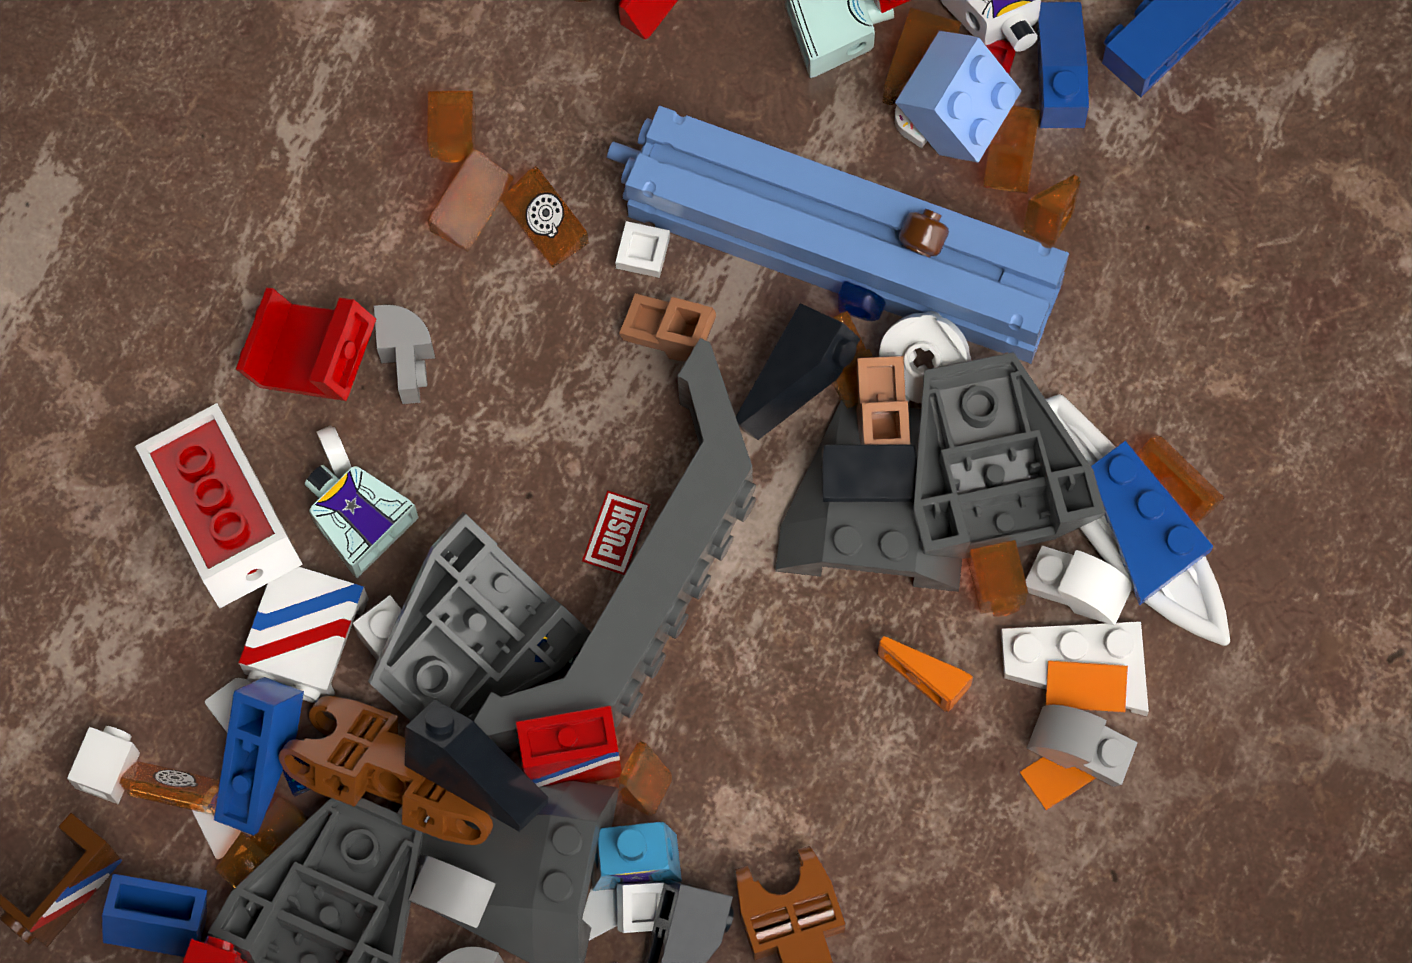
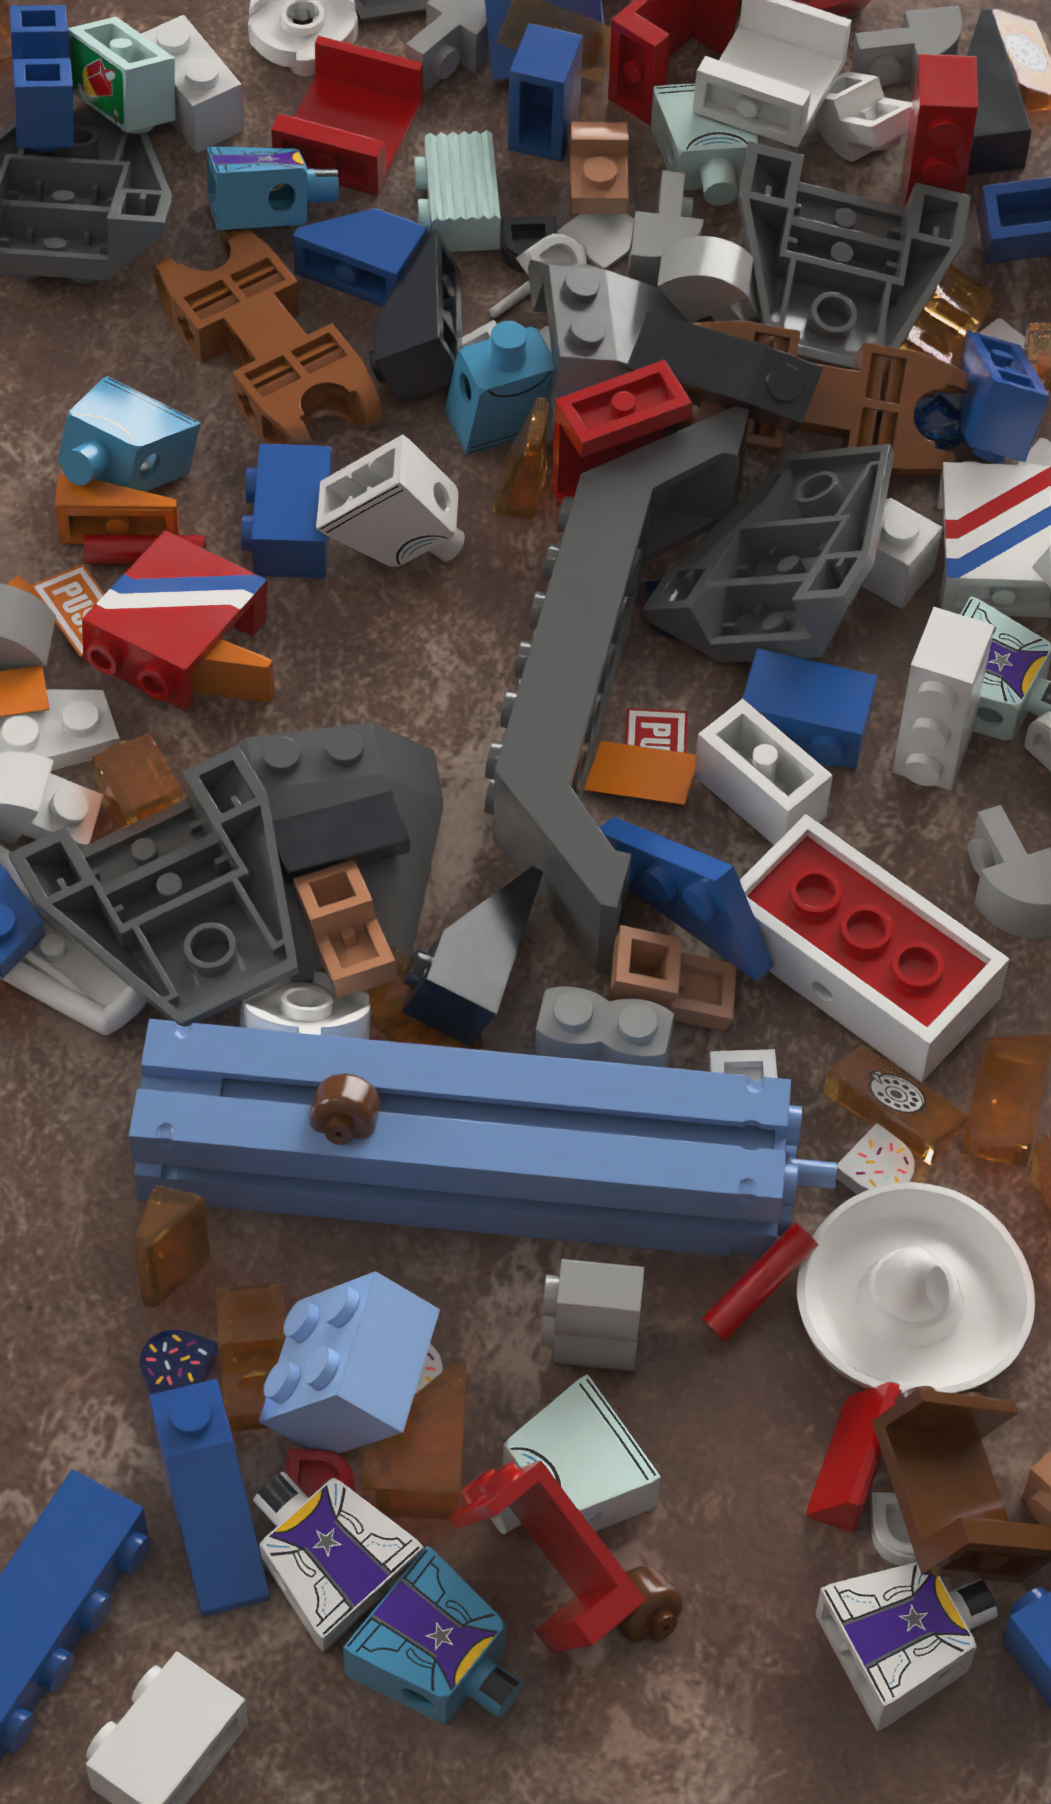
camera: 160 degrees right, 15 degrees down
(413, 458) = (942, 698): none -> white brick
(511, 521) = (813, 704): none -> blue piece
(531, 313) = (871, 948): none -> brick
(554, 463) = (761, 772): none -> white brick
(573, 176) = (876, 1162): none -> white tile
(583, 75) = (916, 1290): none -> white hat
(626, 508) = (641, 772): none -> orange sticker
(664, 422) = (693, 893): none -> blue wing
(689, 104) = (759, 1282): none -> red piece
(738, 299) = (589, 1027): none -> light grey brick
(742, 739) = (392, 506): none -> white torso
(794, 96) = (593, 1314): none -> light grey brick
(829, 795) = (286, 510): none -> blue piece
(941, 707) = (170, 616): none -> red panel
(946, 799) = (124, 547): none -> red piece
(947, 882) = (126, 439): none -> dark azure torso
(976, 831) = (110, 509): none -> orange slope
(1004, 762) = (70, 598): none -> sticker
(1061, 156) = (176, 1360): none -> clear blue tile

